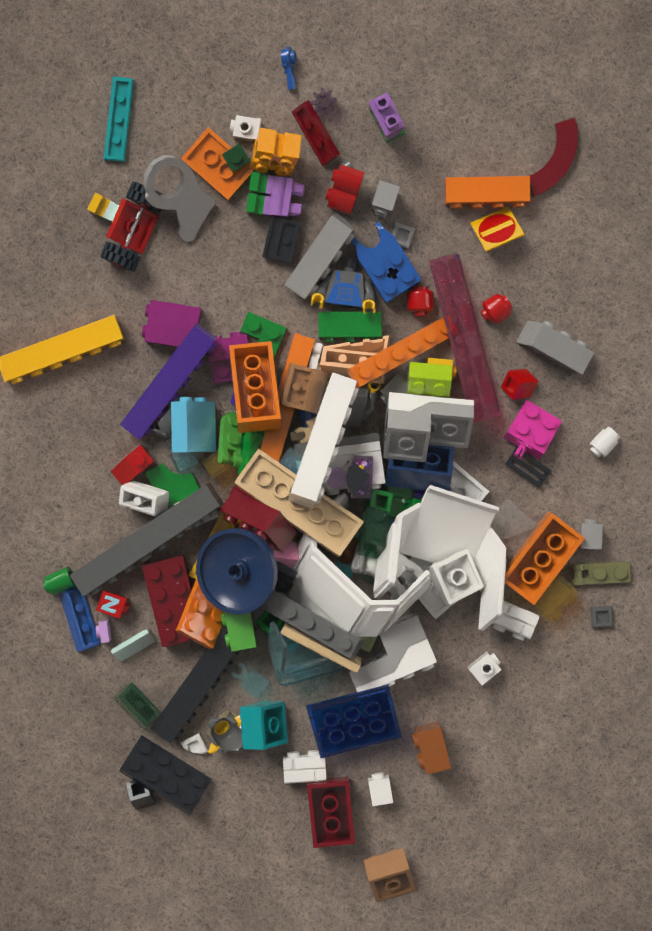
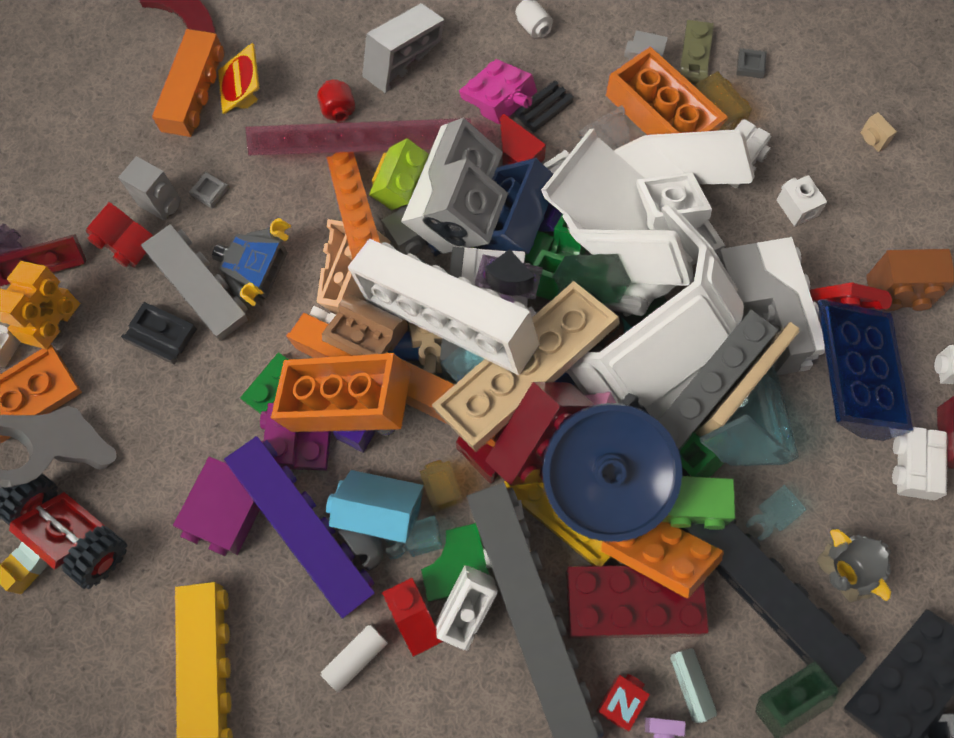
camera: 75 degrees left, 20 degrees down
(100, 435) = (354, 658): none -> white brick
(195, 744) = (867, 624): white tile -> none
(229, 441) = (412, 457): bright green plate -> none
(236, 158) = (24, 363): dark green plate -> none
(249, 446) = (430, 434): green tile -> none
(263, 725) = (854, 504): teal brick -> none
(280, 199) = (96, 329): medium lavender hips -> none
(349, 326) = (299, 271): green brick -> none
(385, 257) = (233, 207): blue brick -> none
(386, 117) = (48, 162): medium lavender hips -> none
(404, 706) = (854, 295): none -> red plate
(420, 300) = (297, 182): red head -> none
(482, 456) = (518, 143): none -> red slope
(519, 384) = (437, 93): red panel -> none
(554, 716) = (878, 132): none -> tan plate

